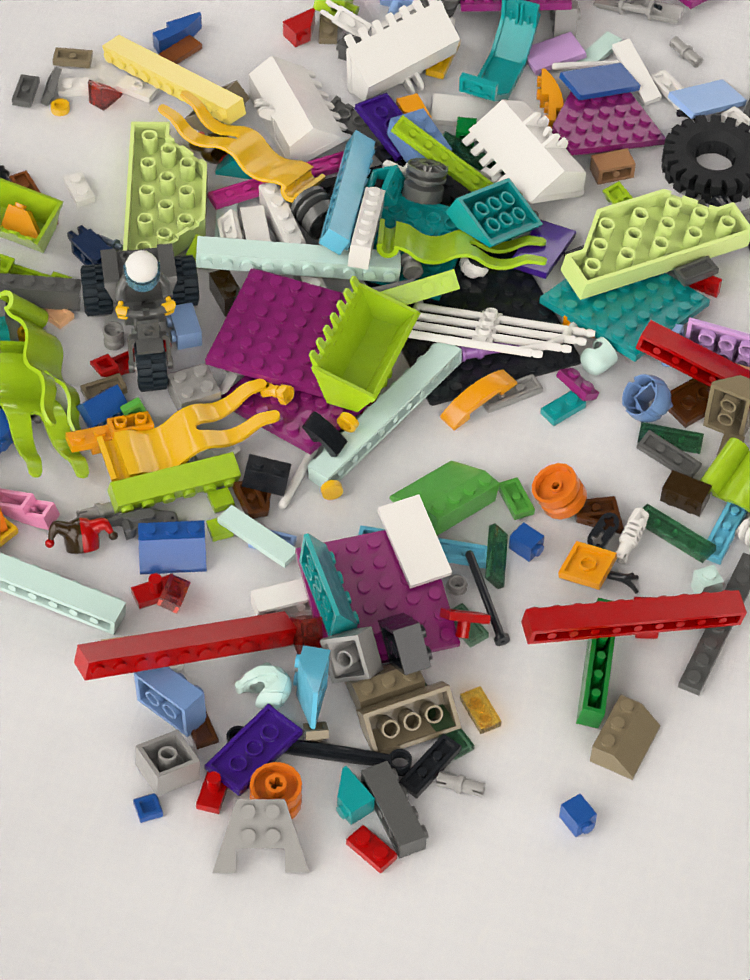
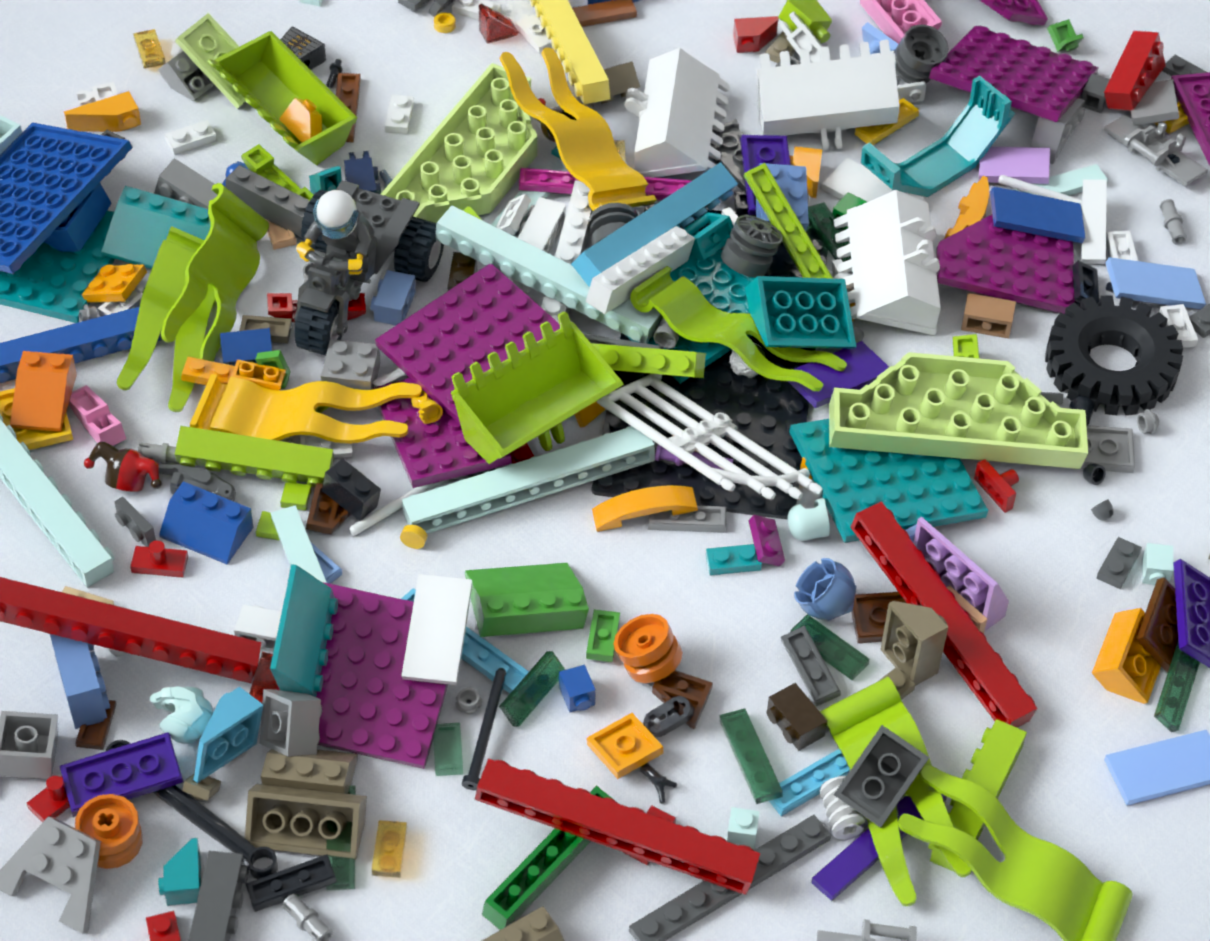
camera: 30 degrees right, 0 degrees up
(70, 261) = (325, 180): none -> teal slope
(118, 570) = (139, 527): none -> dark grey plate
(173, 593) = (168, 570): clear red slope -> none
(324, 432) = (434, 471): black slope -> none
(347, 422) = (471, 470): yellow tile -> none
(405, 643) = (342, 734): brick -> none
(464, 619) = (439, 740): red tile -> none
(631, 534) = (698, 734): white hinge -> none
(659, 117) = (1085, 282): none -> black plate
(696, 271) = (990, 470): dark grey tile -> none

